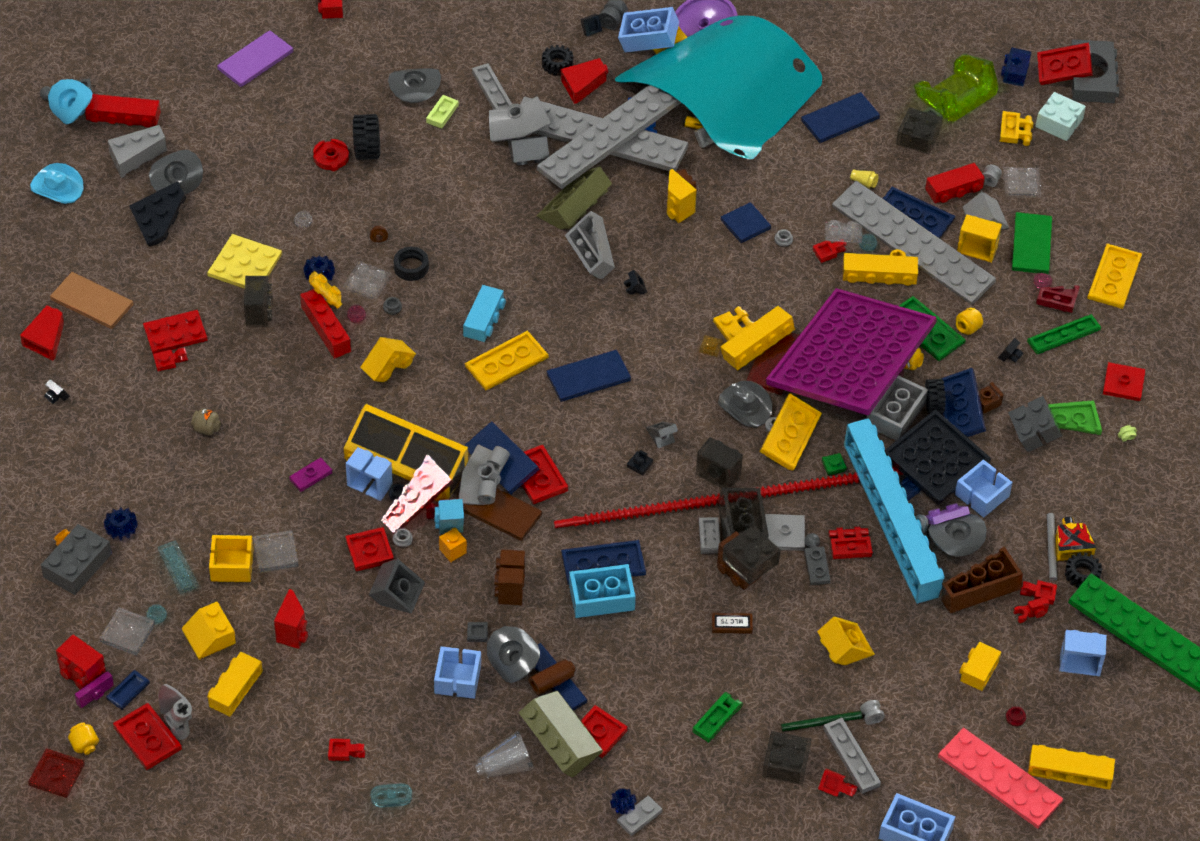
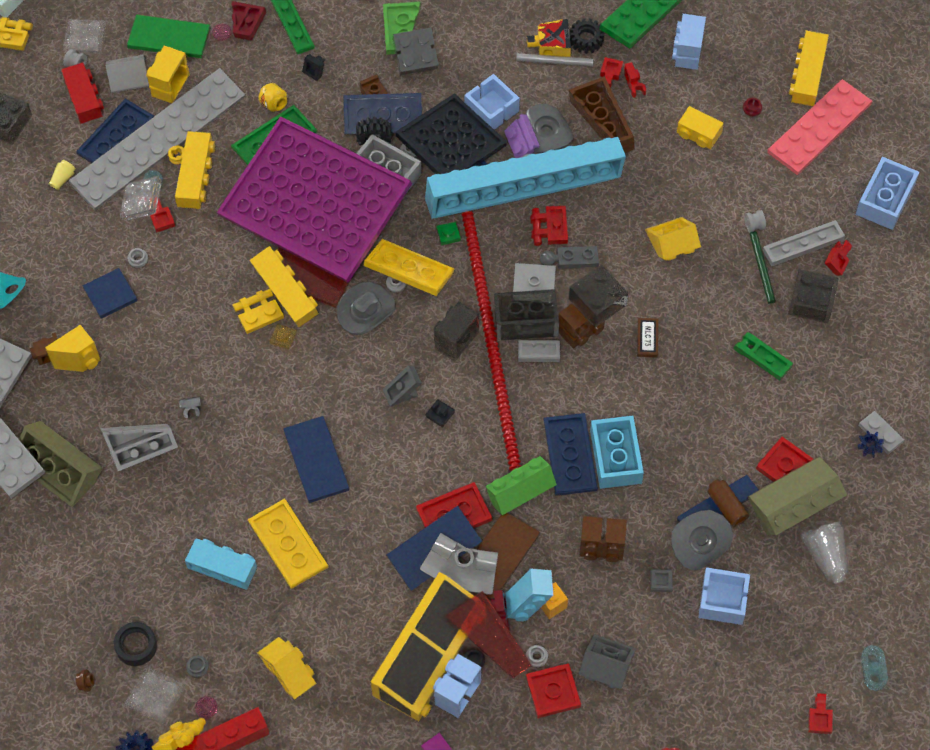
camera: 85 degrees left, 10 degrees up
(564, 518) = (521, 485): none -> bright green brick

